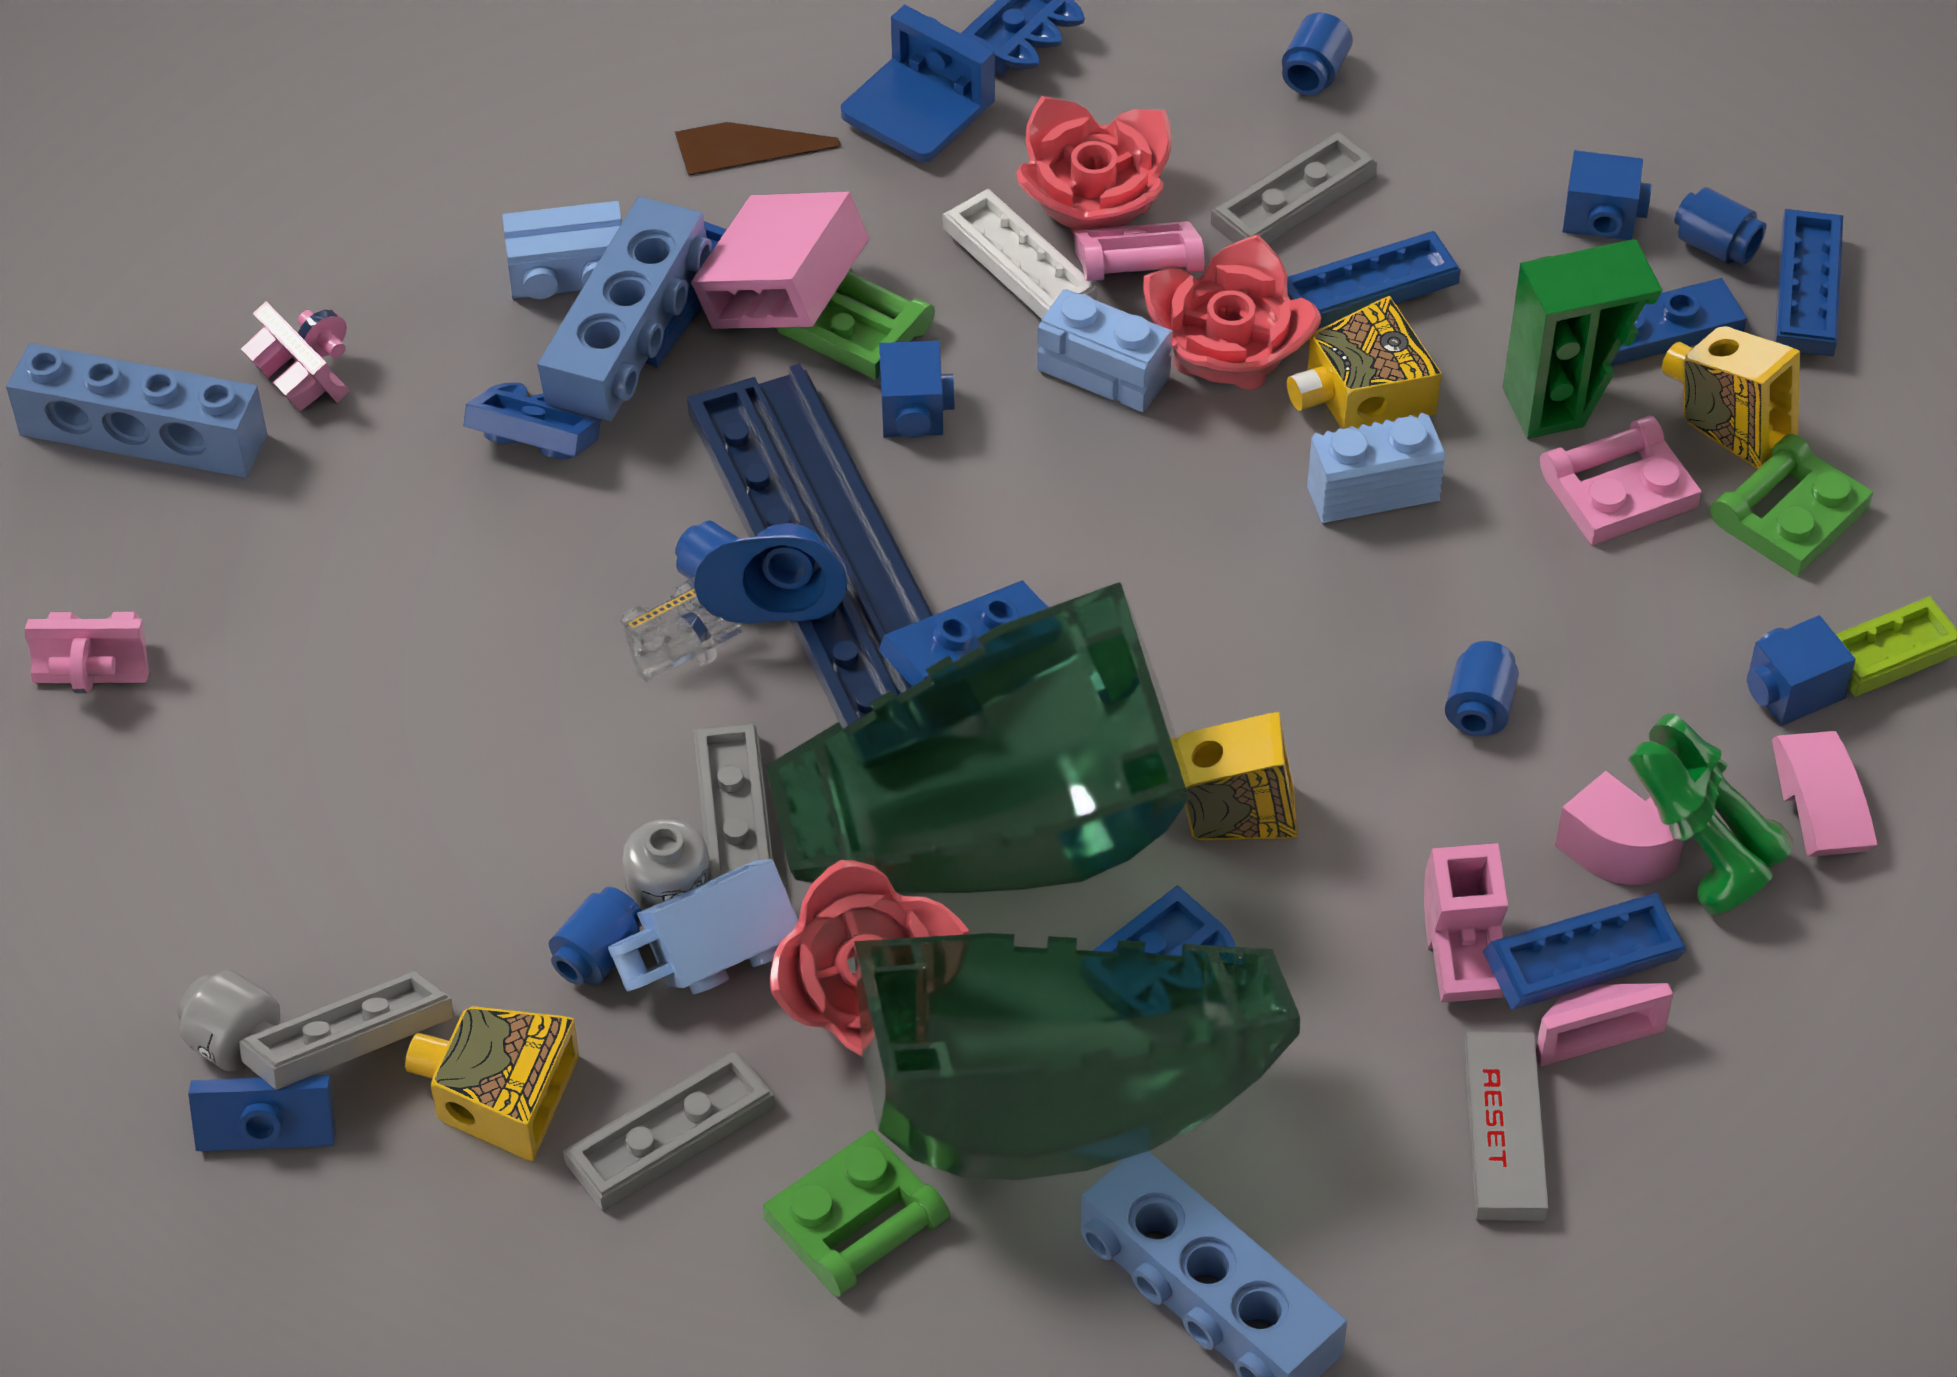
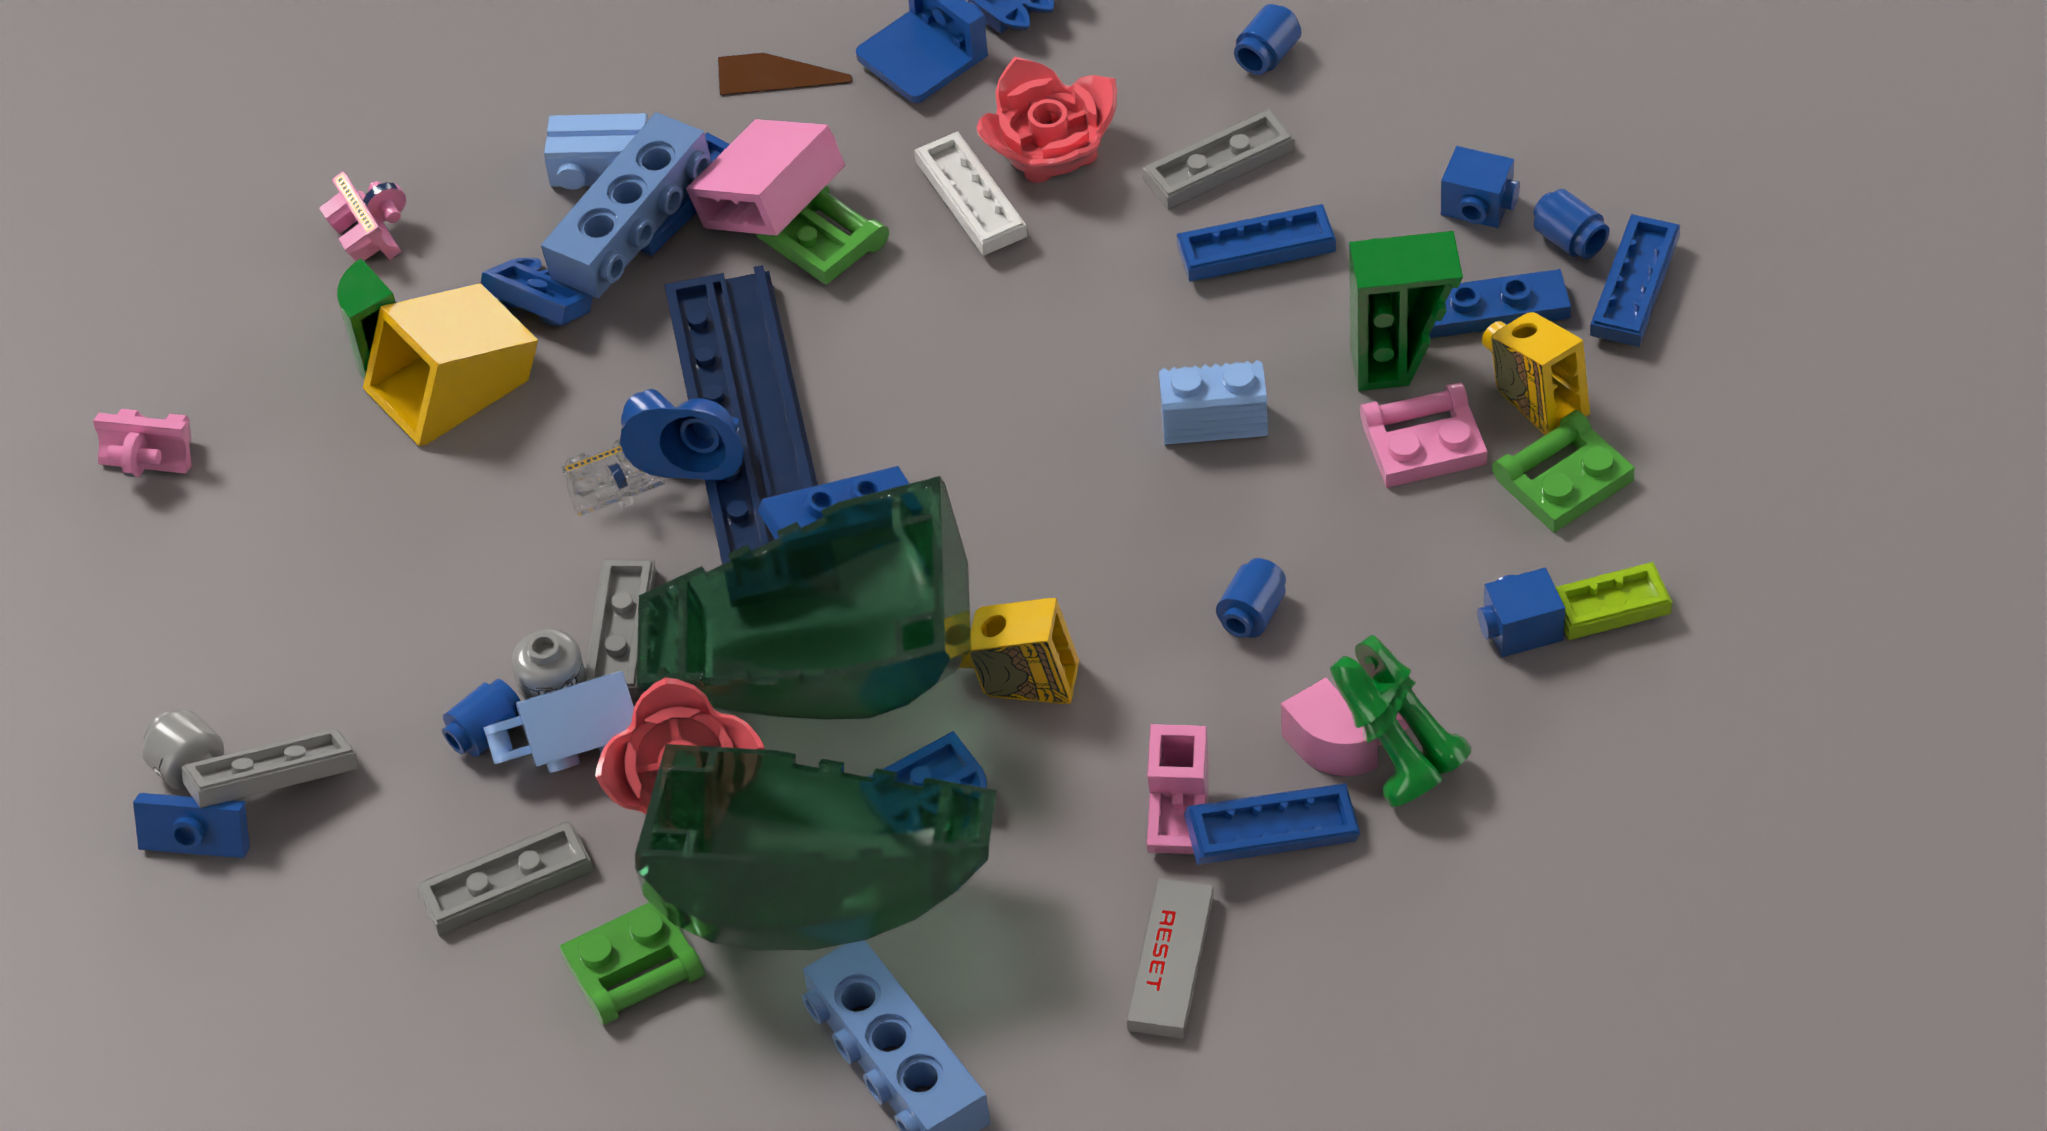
camera: 15 degrees right, 0 degrees up
(137, 410) = (226, 250): medium blue brick -> none
(347, 476) = (360, 299): none -> green brick
(443, 512) = (446, 359): none -> yellow slope
(499, 1074) = (381, 817): torso -> none
(913, 389) = (850, 296): blue brick -> none
(1104, 350) = (1016, 279): light blue brick -> none
(1139, 249) = (1066, 195): bright pink plate -> none
(1234, 317) = (1128, 265): coral brick -> none
(1368, 369) = (1232, 317): torso -> none
(1601, 1019) = (1269, 882): bright pink slope -> none
(1826, 792) = (1513, 718): bright pink slope -> none

